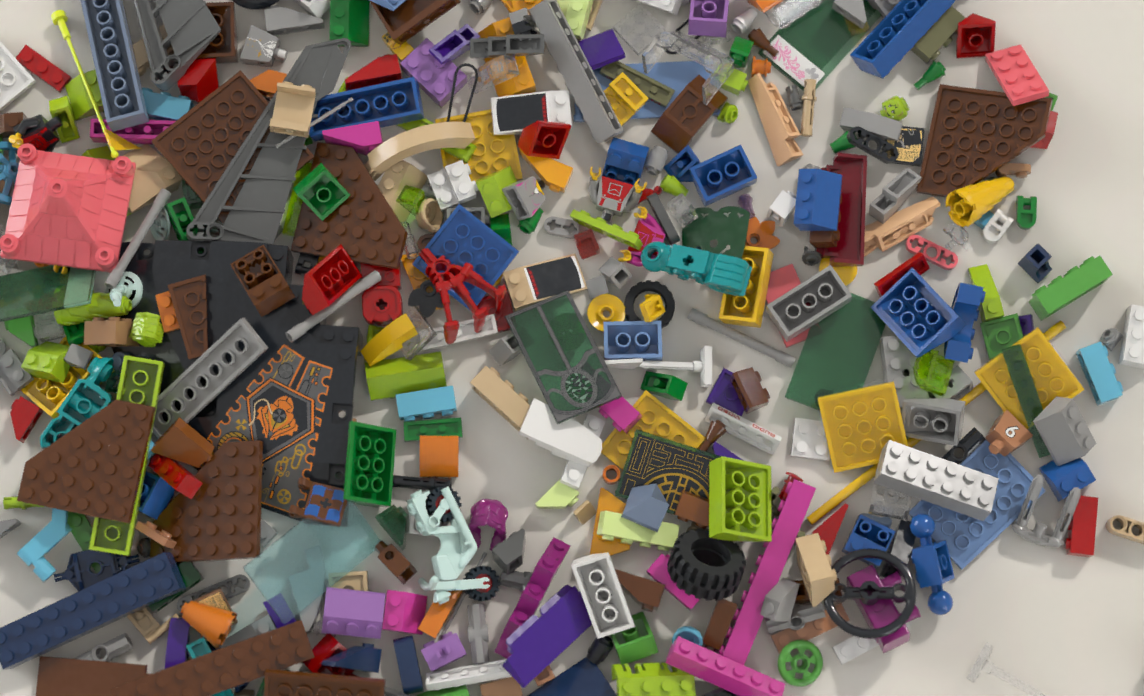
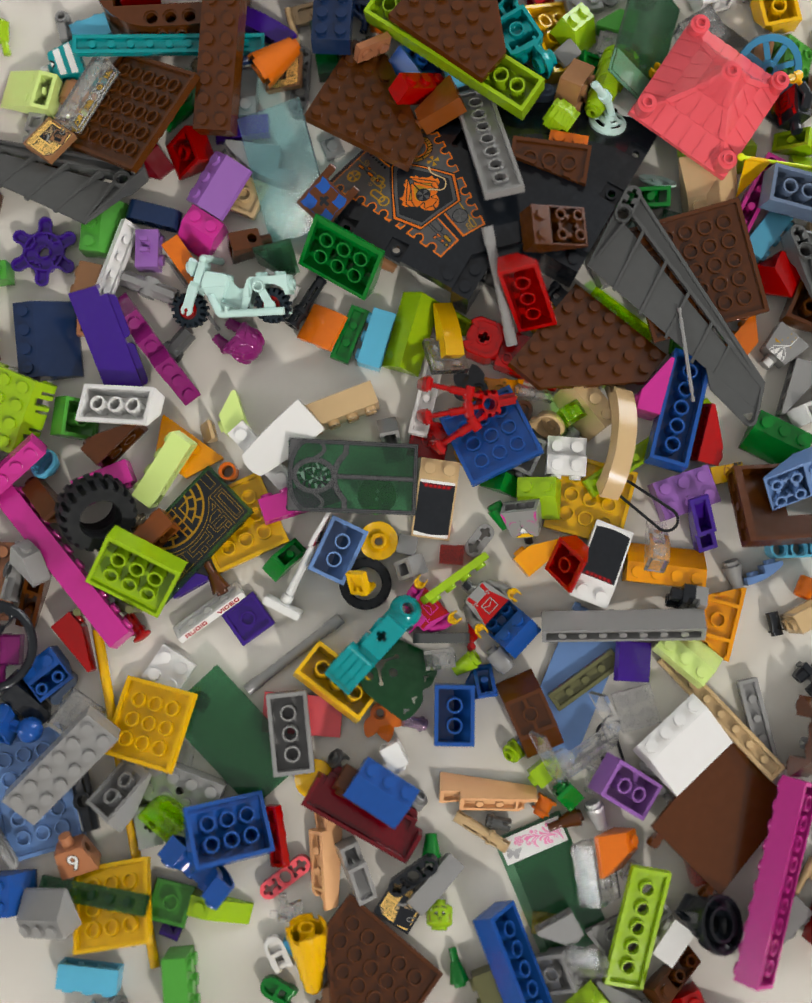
camera: 120 degrees right, 5 degrees up
(118, 271) = (626, 111): light grey piece -> none
(293, 109) = (707, 338): tan panel -> none
(321, 191) = (616, 331): green slope -> none
(357, 658) = (177, 170): dark blue slope -> none
(507, 45) = (676, 571): dark grey slope -> none
(510, 553) = (202, 347): dark grey slope -> none
(599, 649) = (76, 382): black brick -> none
(624, 98) = (574, 659): yellow slope -> none
(646, 506) = (178, 485): sand blue slope -> none
(749, 389) = (237, 635): reddish brown slope -> none
(815, 567) = (37, 609): tan slope -> none
(1036, 263) = (224, 973): dark blue brick -> none

